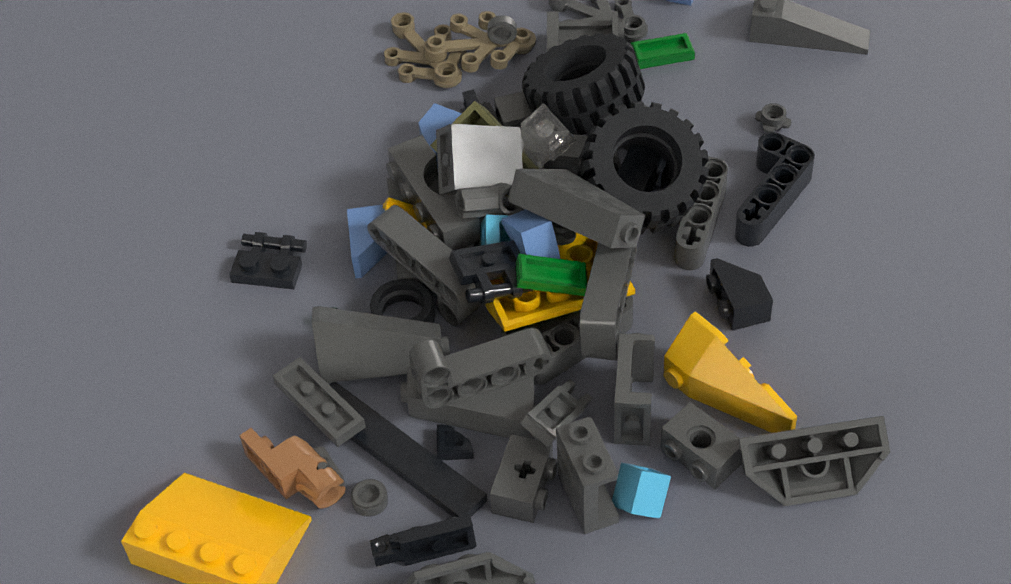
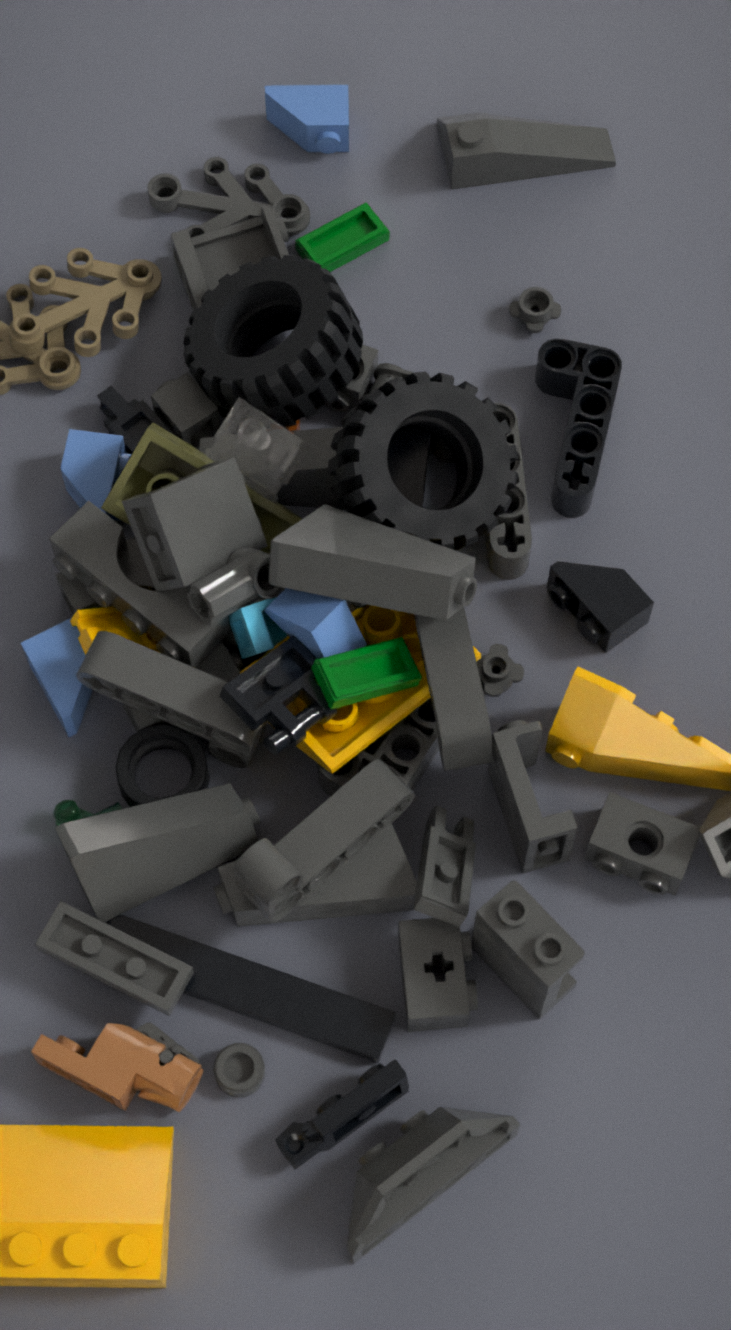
camera: 25 degrees left, 15 degrees up
(452, 444) = (315, 950): black tile -> none
(502, 30) = (114, 277): dark grey tile -> none
(641, 490) = (598, 930): medium azure panel -> none
(652, 323) = (510, 672): none -> dark grey plate

